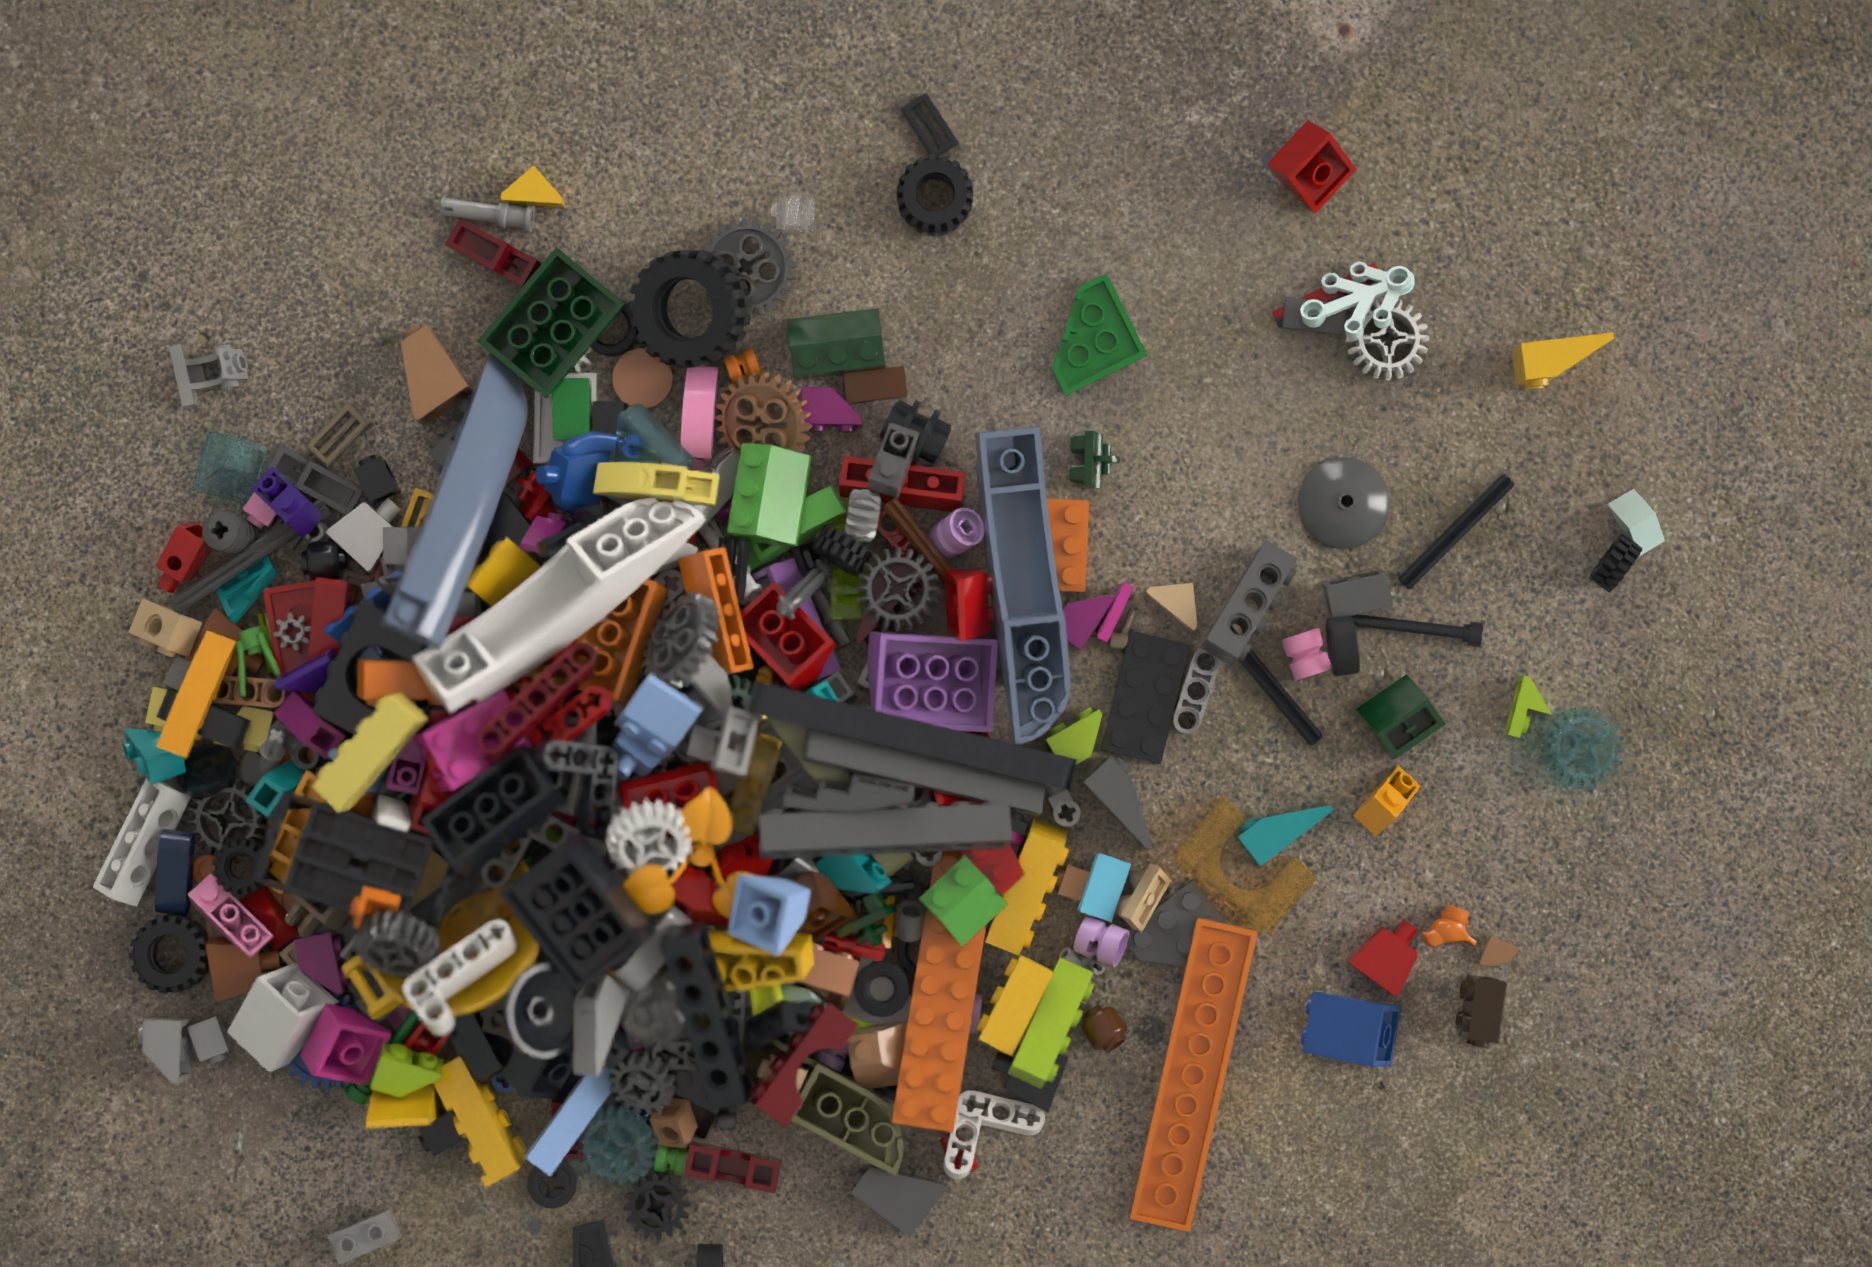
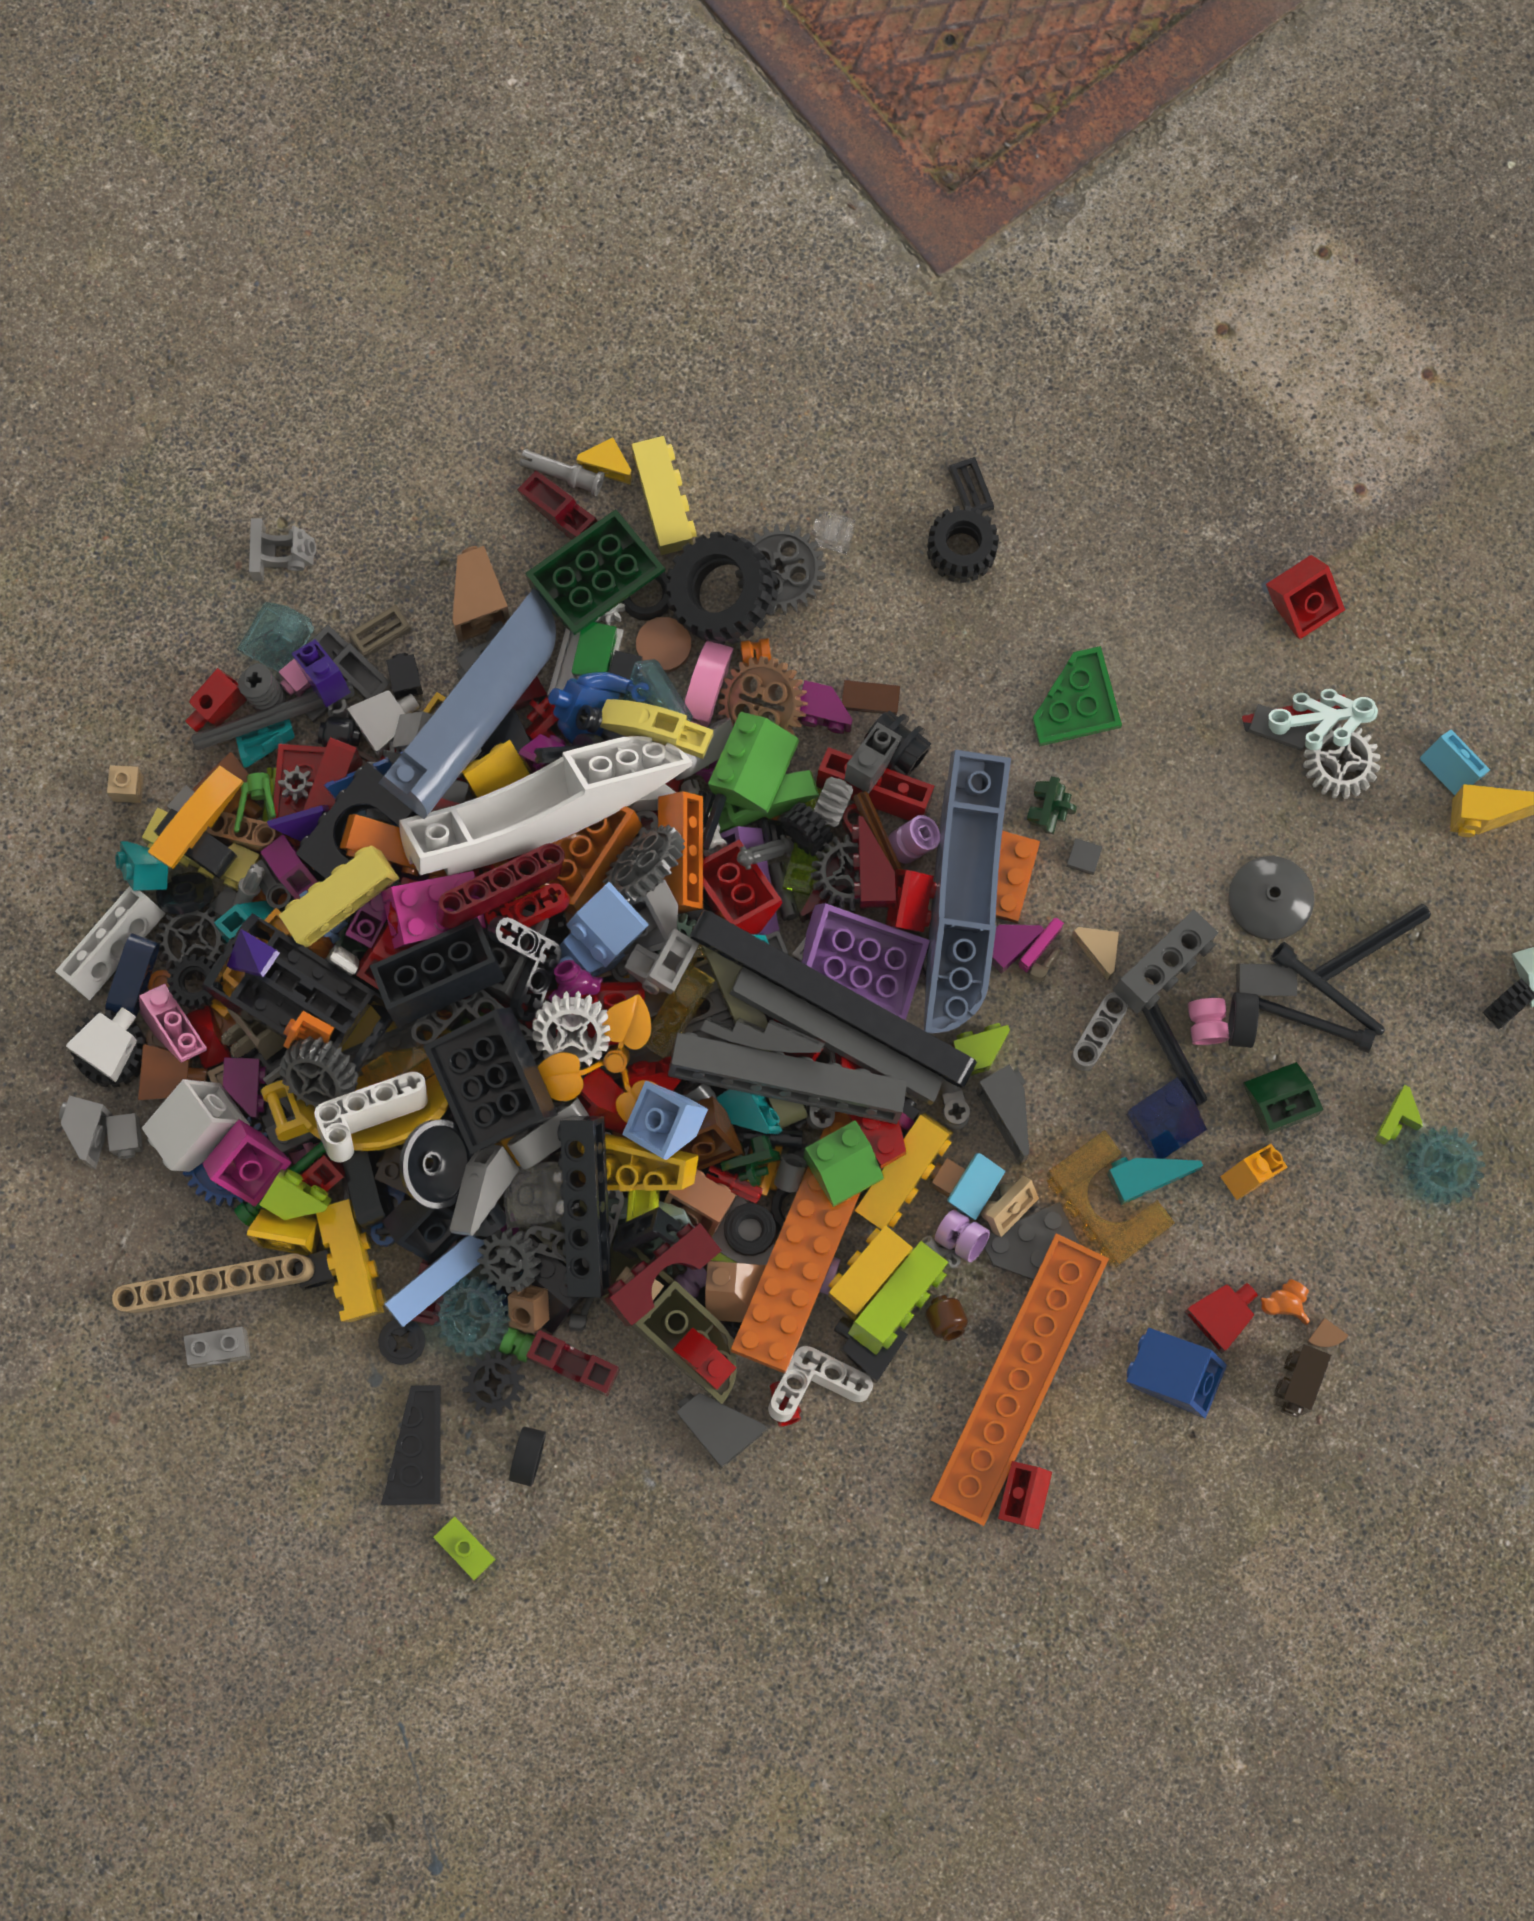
camera: 15 degrees right, 10 degrees down
(112, 667) = (125, 784): none -> tan brick
(164, 628) = (181, 759): tan brick -> none
(166, 956) = (105, 1043): none -> white torso
(296, 844) = (251, 955): none -> dark purple slope
(331, 1181) = (200, 1280): none -> tan beam
(584, 490) = (589, 718): none -> black bush
(602, 215) = (662, 494): none -> light yellow brick
(638, 783) = (574, 979): none -> magenta animal
(836, 344) = (843, 654): dark green slope -> none
(866, 1136) = (704, 1358): none -> red slope
(926, 590) = (876, 874): none -> dark red slope
(1139, 505) = (1084, 856): none -> dark grey tile
(1145, 697) = (1052, 1027): black plate -> none
(1224, 1192) = (1025, 1495): none -> red brick
(1286, 767) = (1167, 1119): none -> clear blue slope
(1372, 570) = (1285, 956): none -> black piece
(1506, 312) = (1454, 762): none -> medium azure panel

